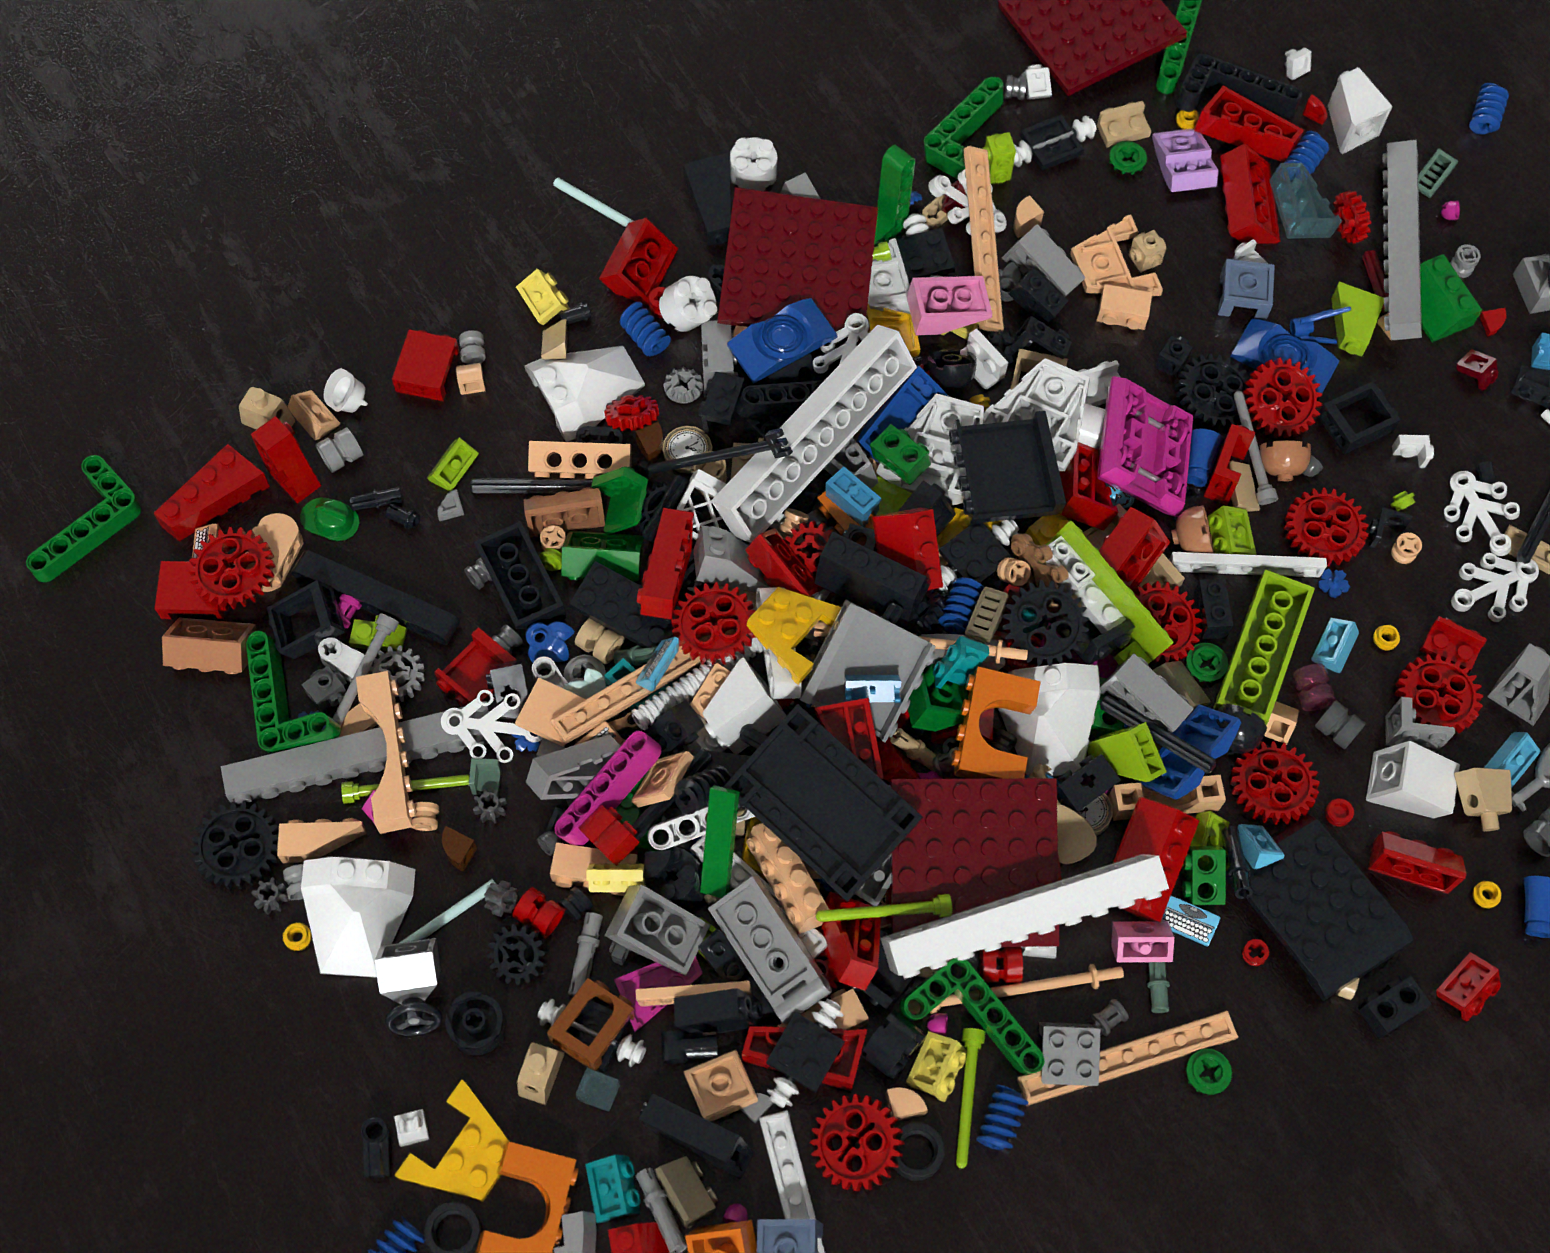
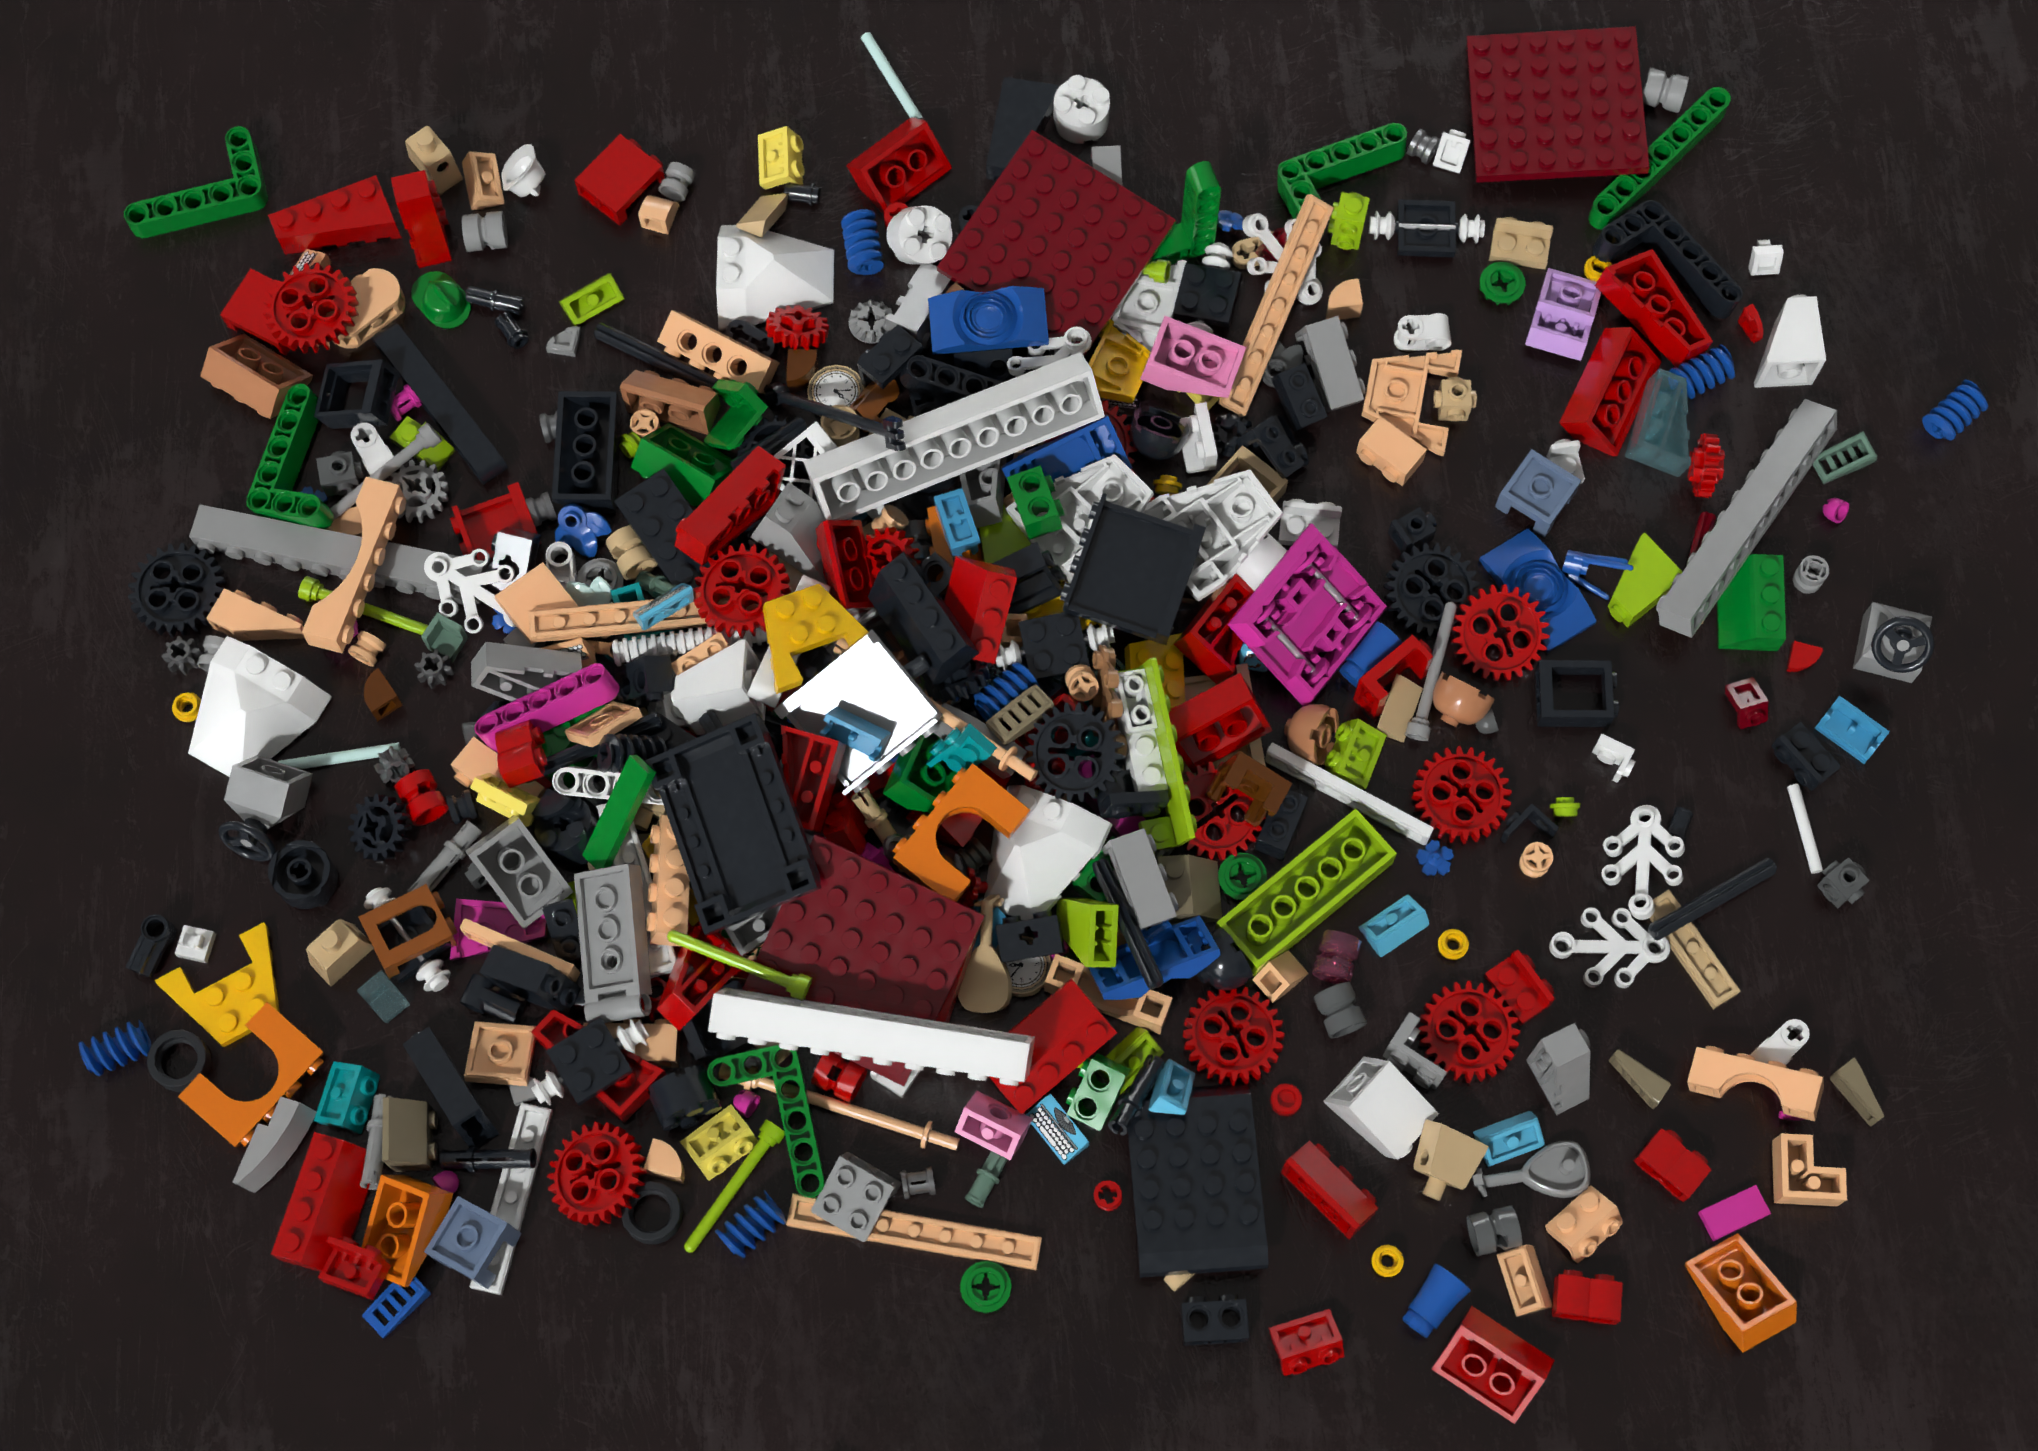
camera: 30 degrees right, 5 degrees up
(723, 437) = (874, 399): none -> dark orange leg
(730, 1193) = (454, 1159): none -> black pin
(1095, 215) = (1424, 331): none -> white piece
(1185, 583) = (1254, 780): none -> reddish brown panel

